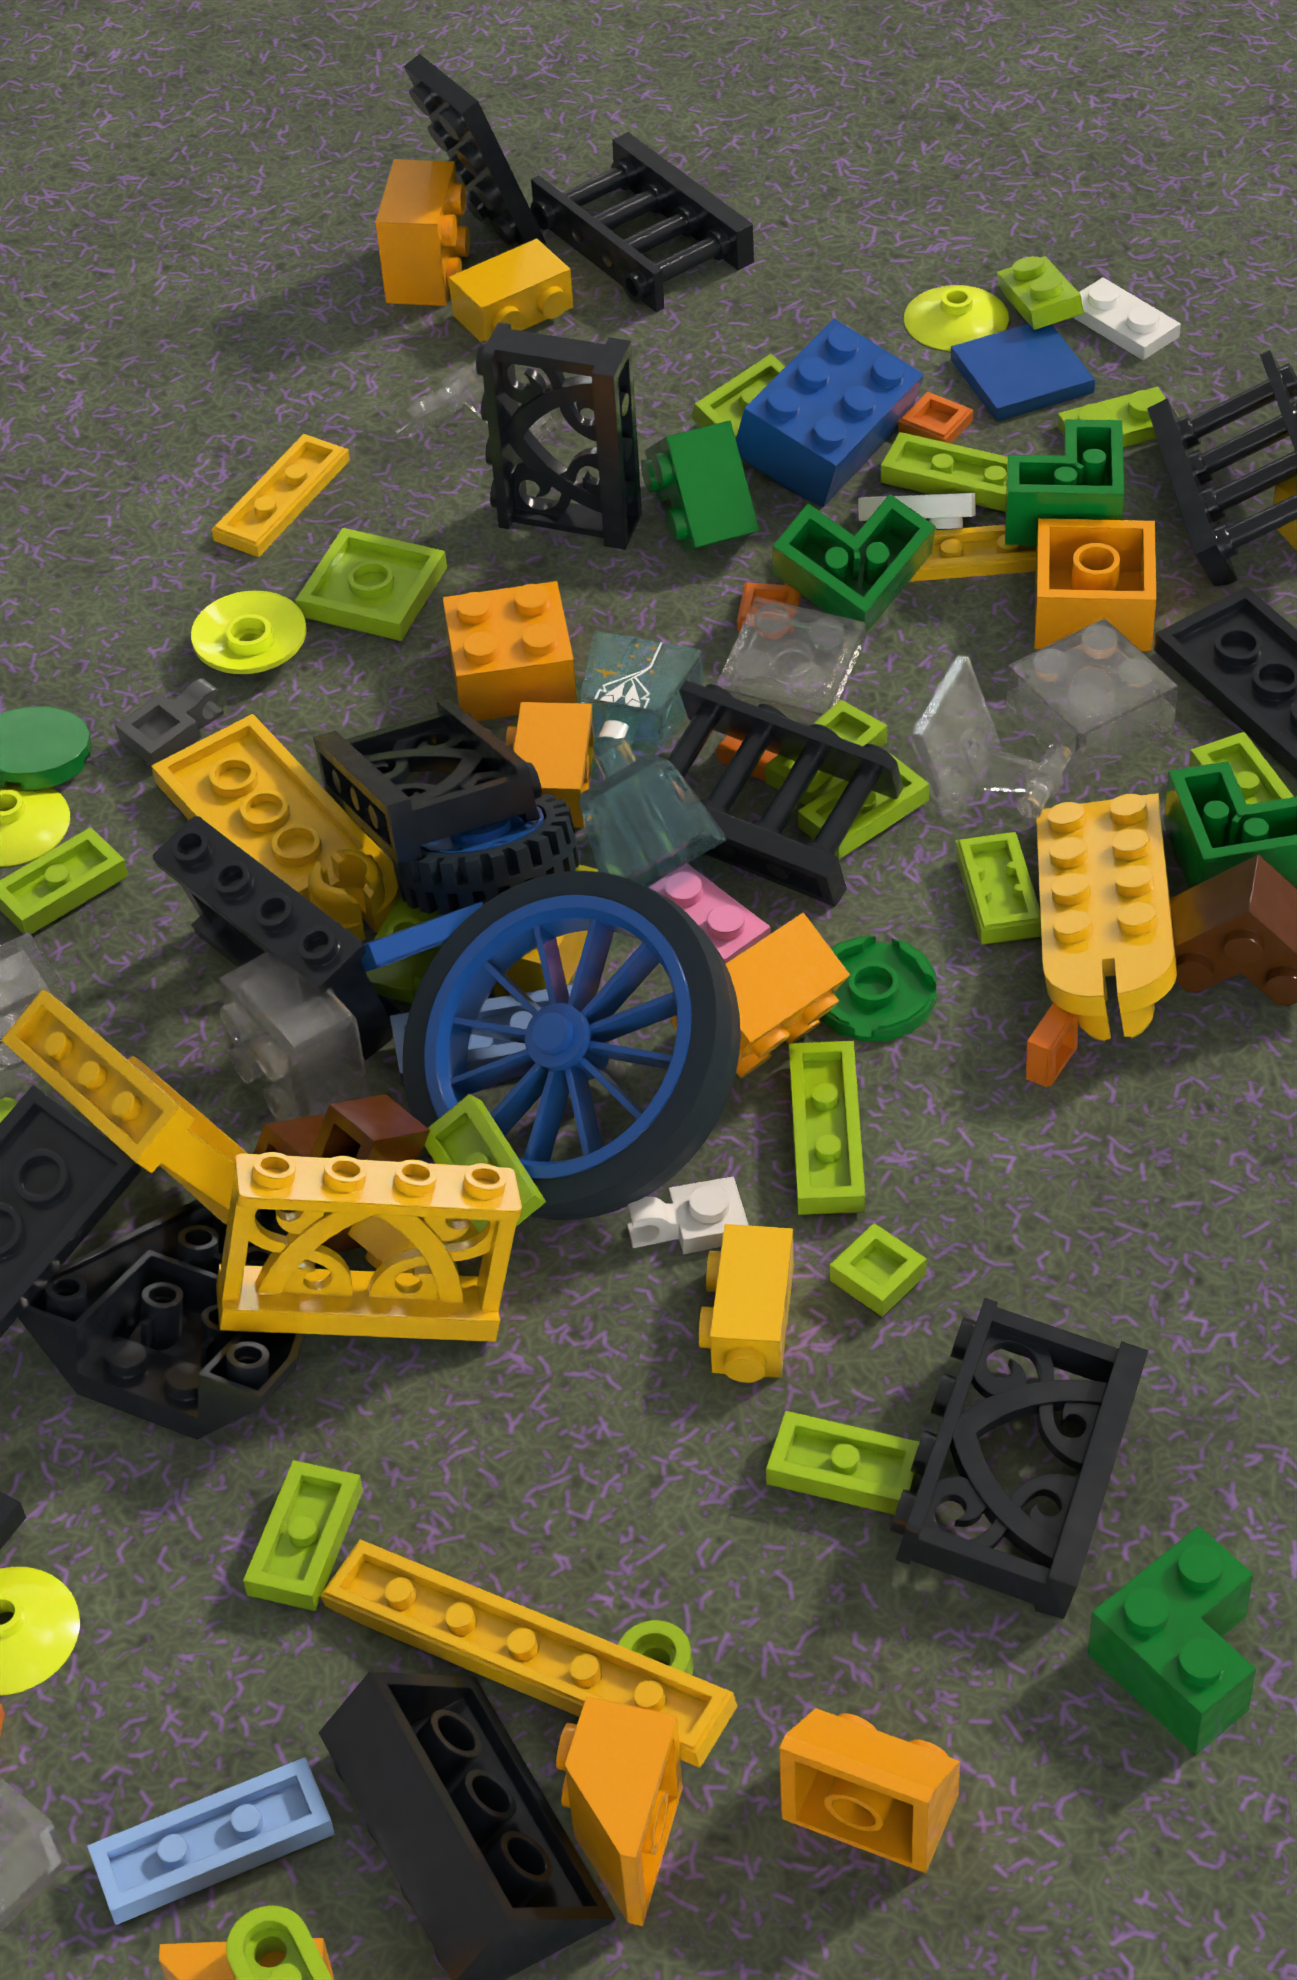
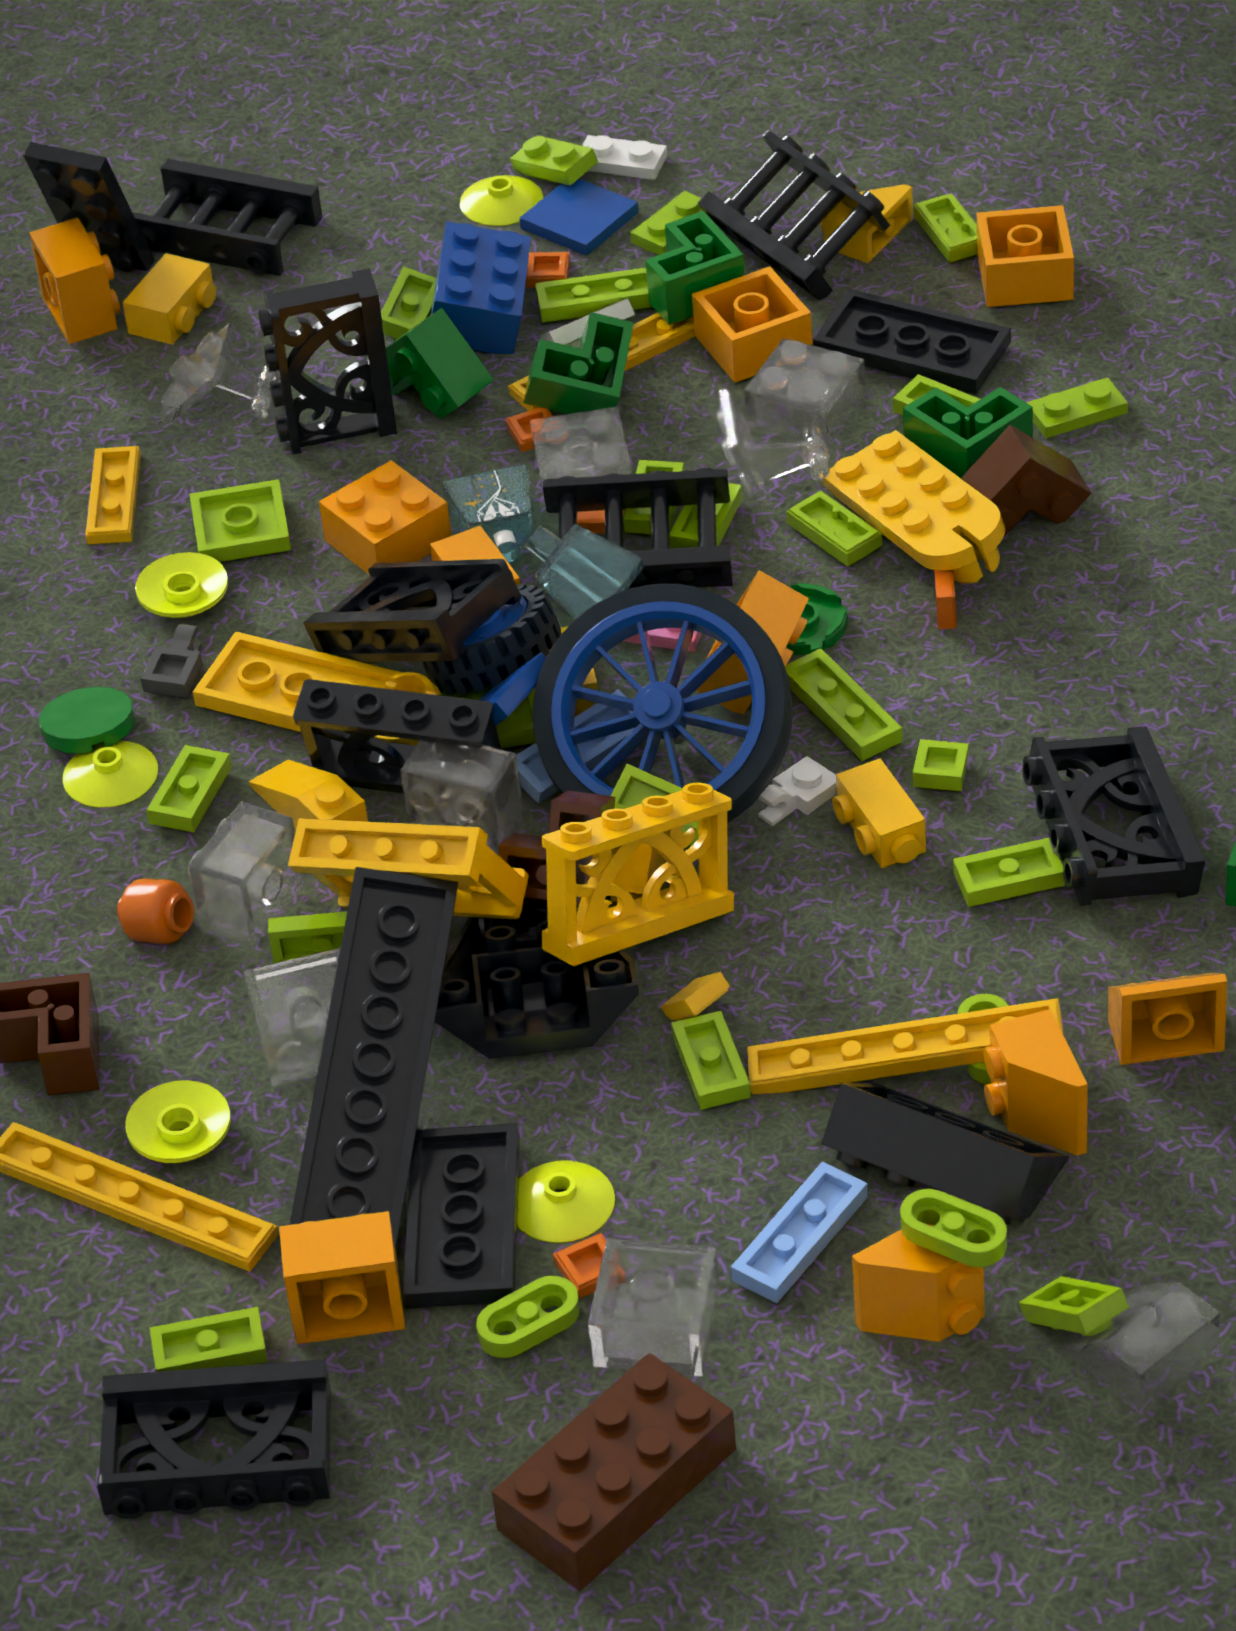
camera: 30 degrees left, 5 degrees down
(159, 971) = (308, 793): none -> yellow slope
(352, 1439) = (695, 997): none -> yellow tile

